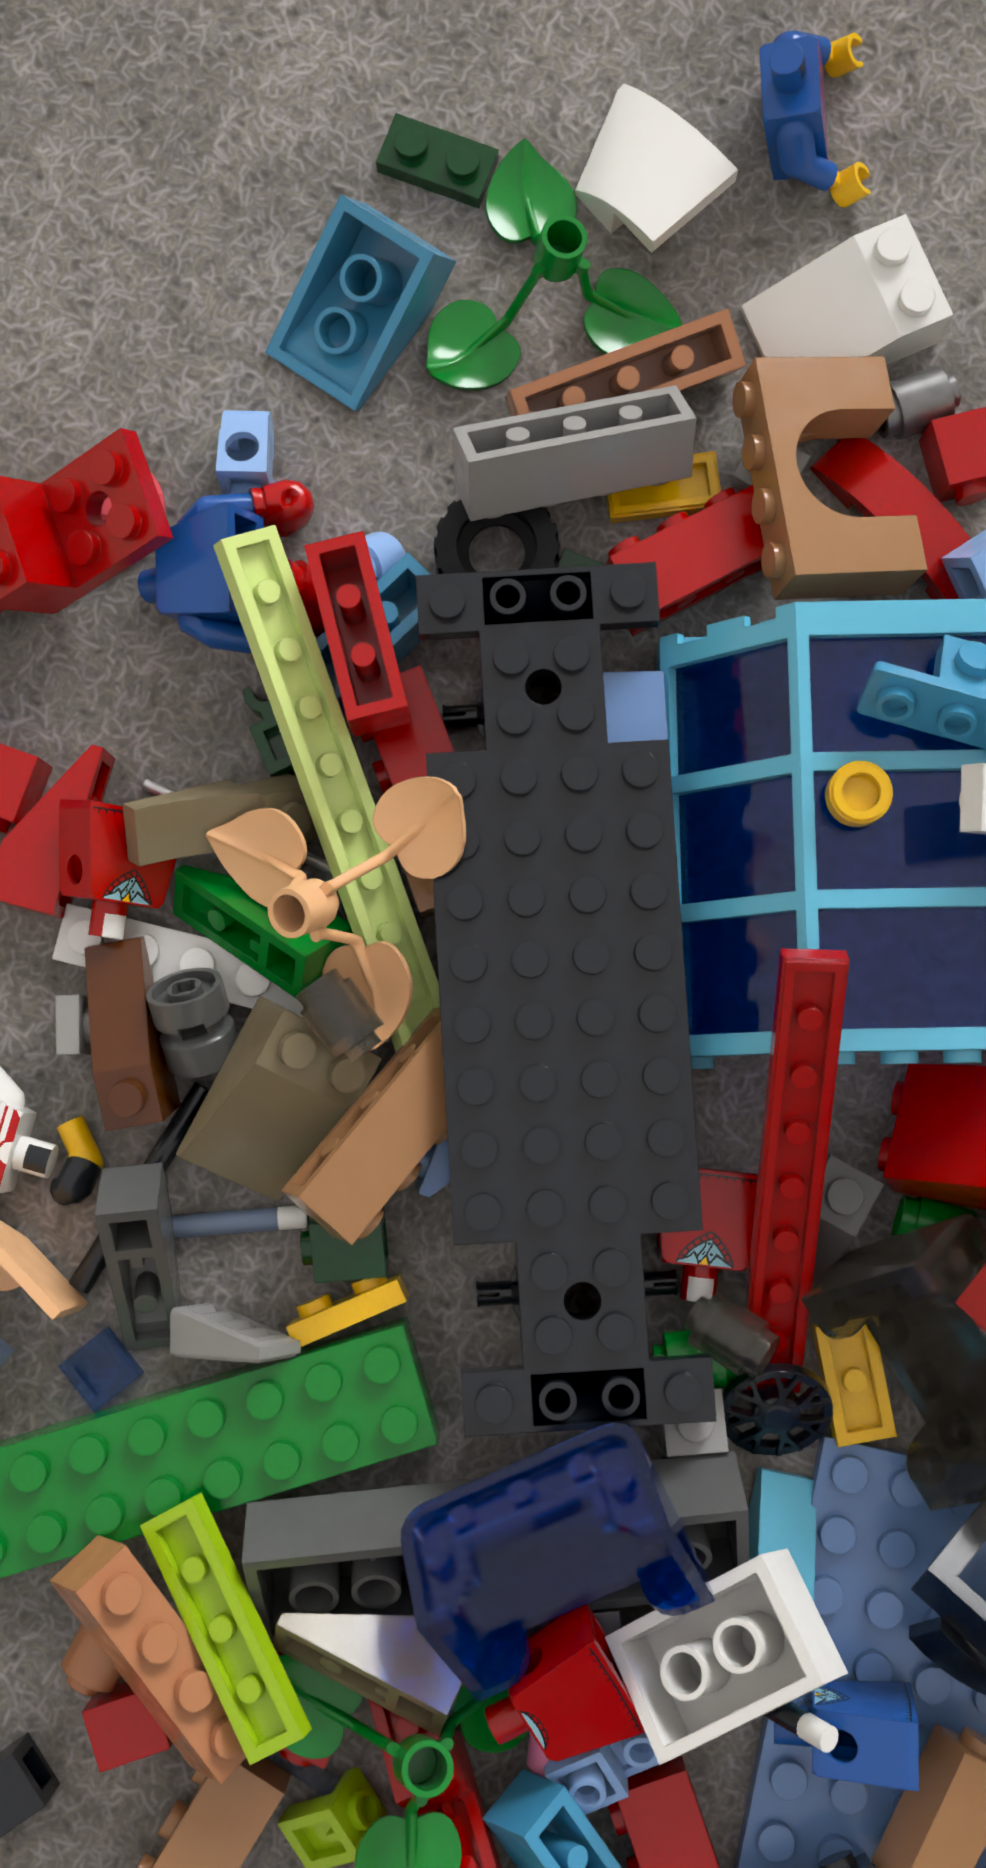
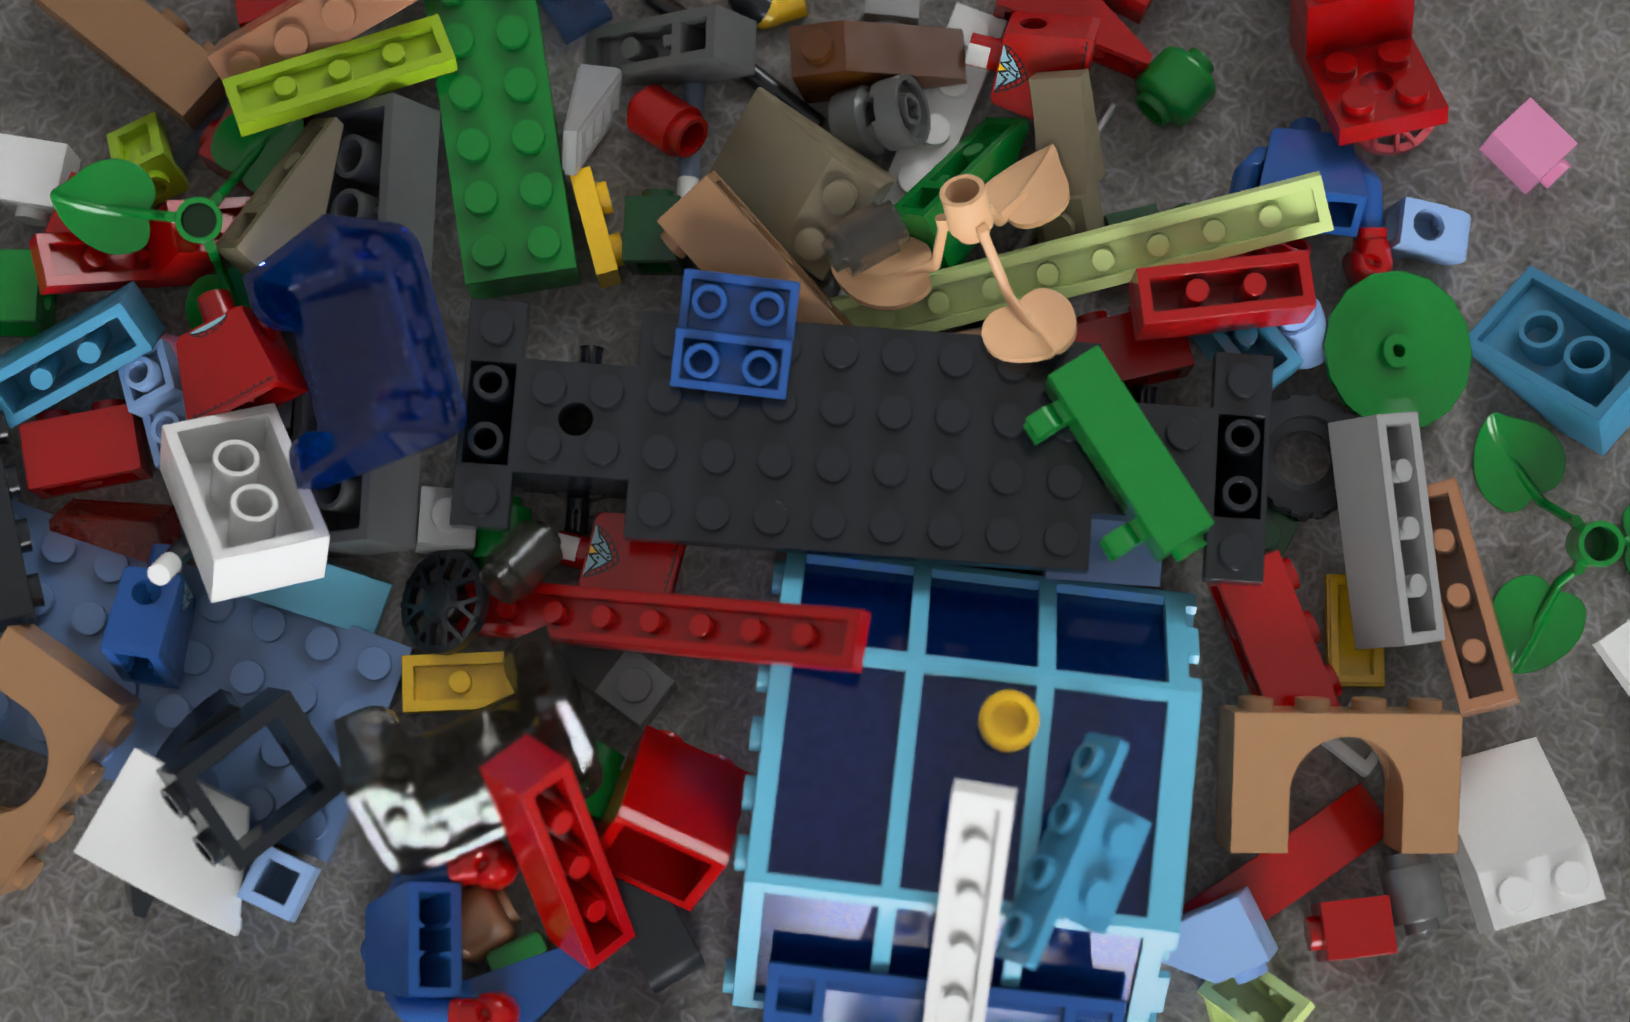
camera: 90 degrees right, 5 degrees down
(120, 720) = (1175, 86): none -> green head
(143, 359) = (1530, 147): none -> bright pink brick
(223, 1250) = (666, 121): none -> red brick
(375, 467) = (1397, 347): none -> green piece
(472, 1140) = (735, 333): none -> blue slope
(554, 706) = (1127, 457): none -> green brick
(747, 1781) = (118, 526): none -> clear red slope

